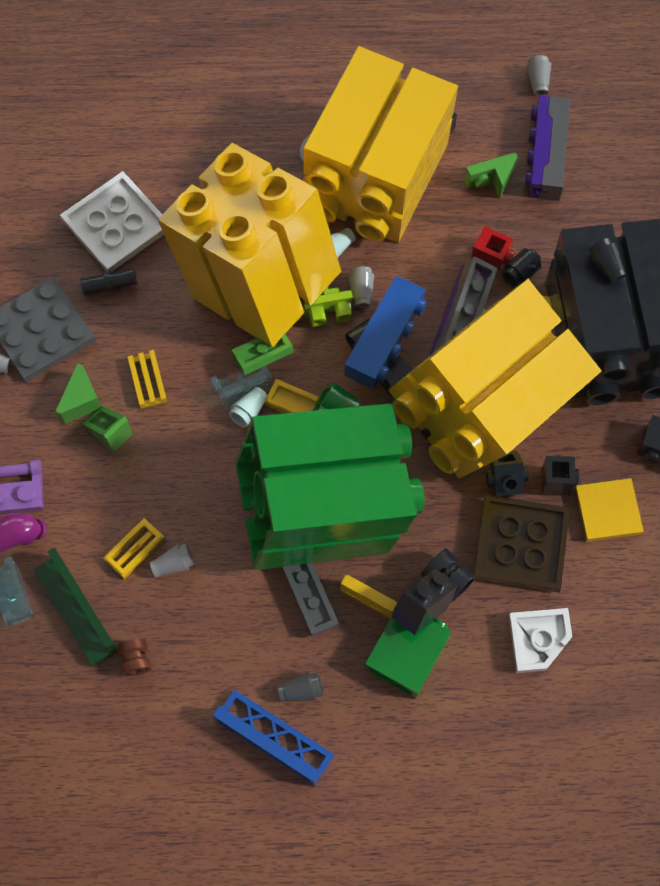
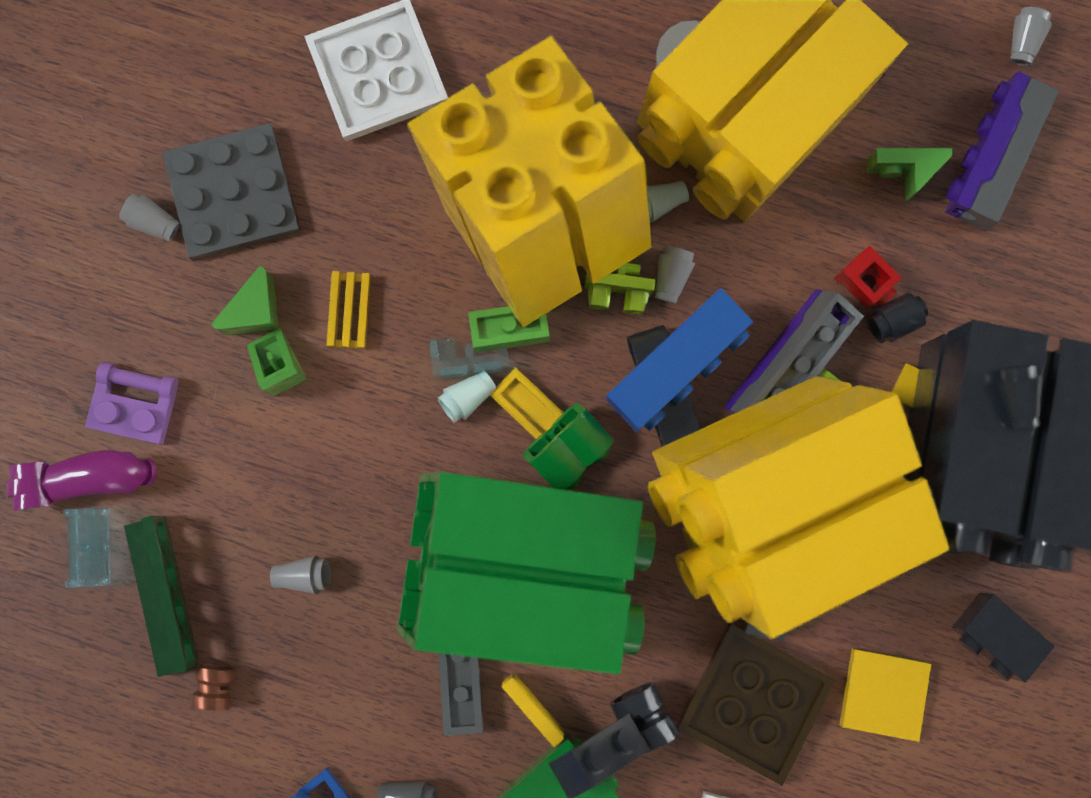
camera: 15 degrees right, 15 degrees up
(108, 281) = (341, 154): black pin -> none
(139, 558) = (230, 554): yellow tile -> none
(559, 475) = (838, 634): black brick -> none

